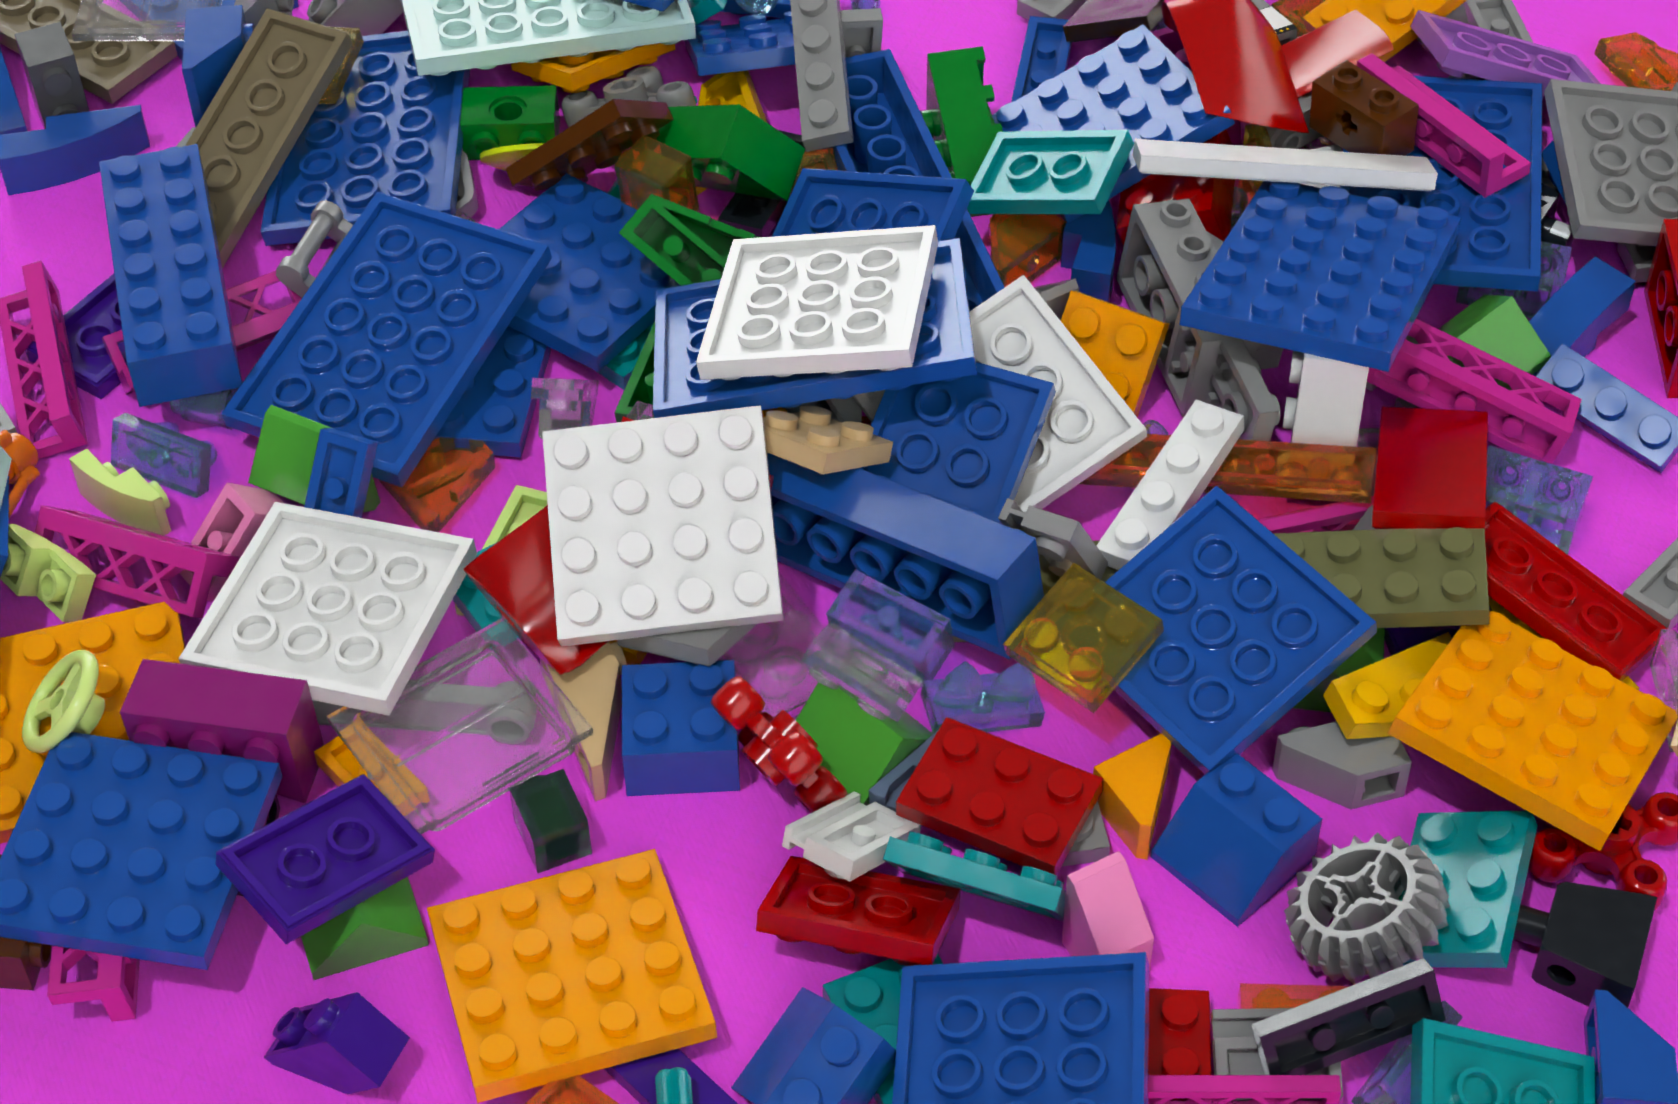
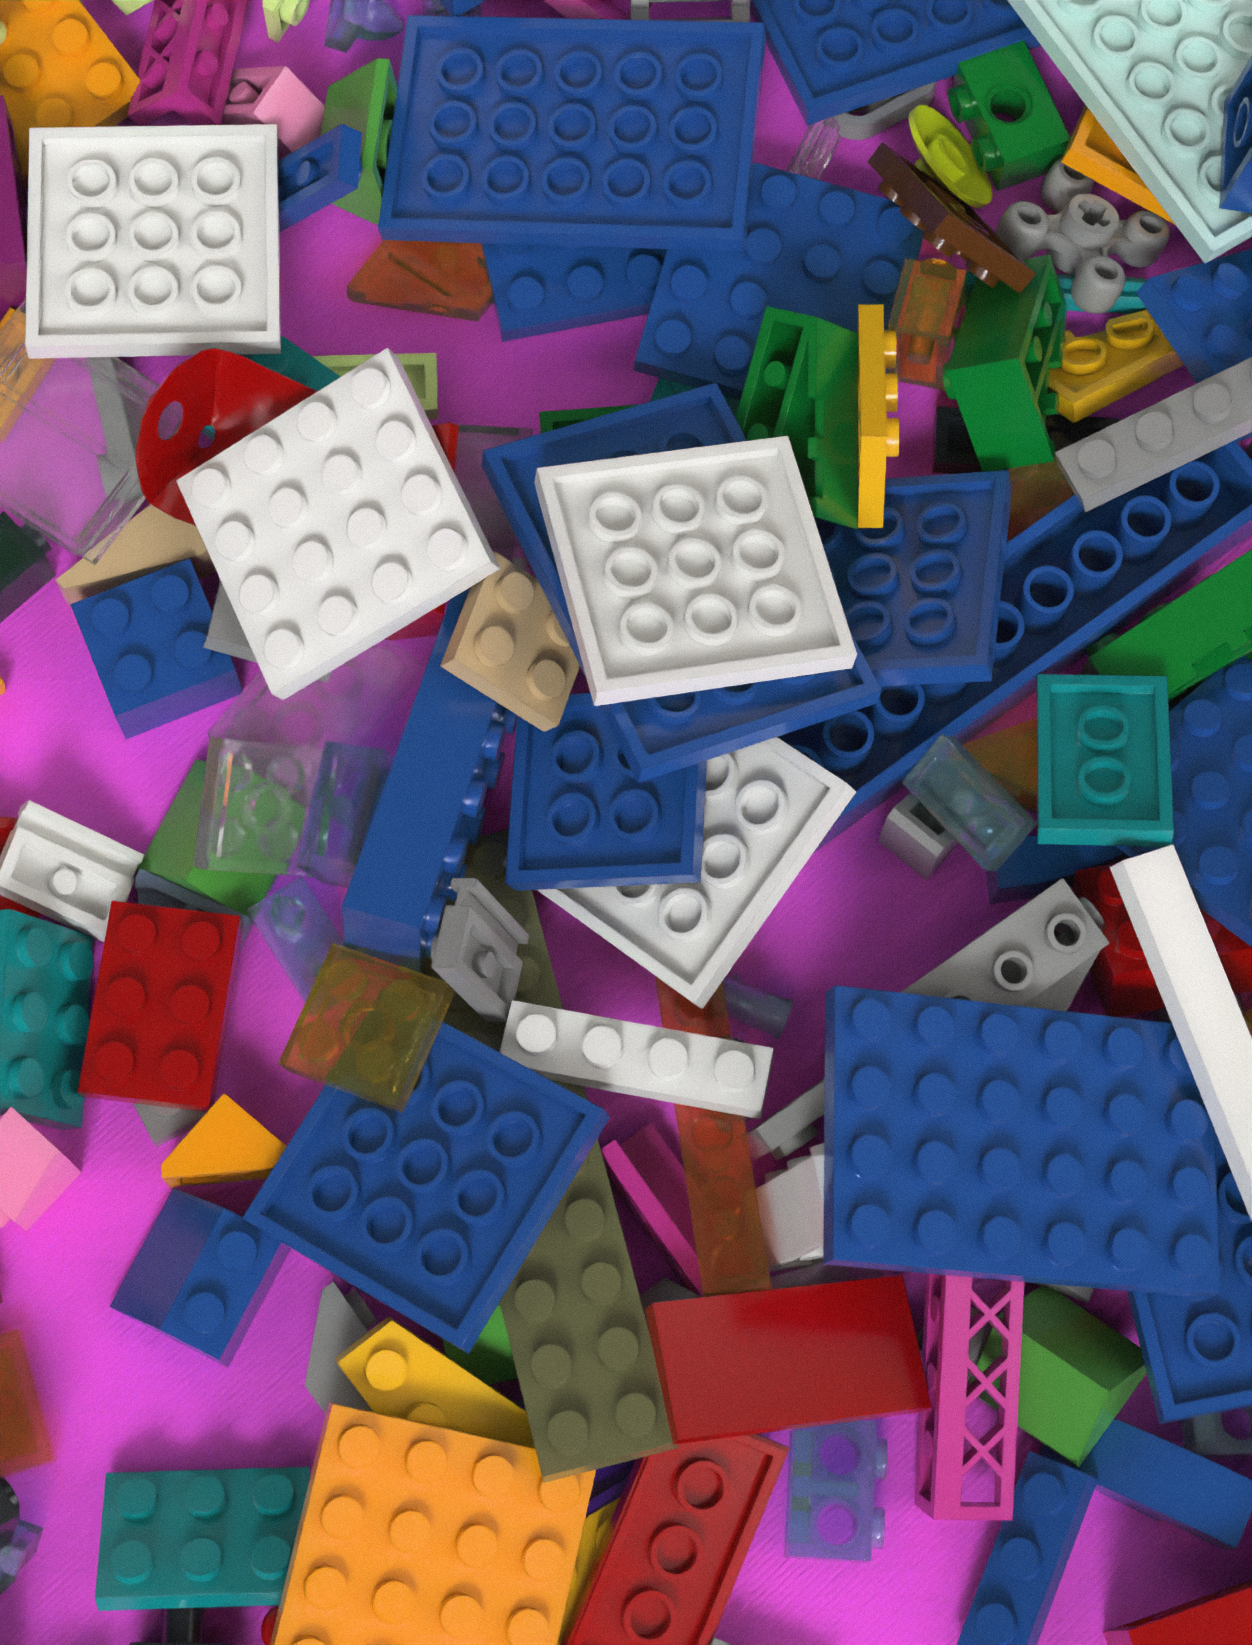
camera: 65 degrees right, 25 degrees up
(564, 402) = (586, 352): clear slope -> none
(738, 202) = (876, 396): none -> yellow wing
(777, 745) = (132, 757): red gear -> none
(1048, 254) = (969, 803): none -> clear light blue tile
(1118, 342) = (864, 920): light orange plate -> none
(1370, 923) = (137, 1459): light grey gear -> none

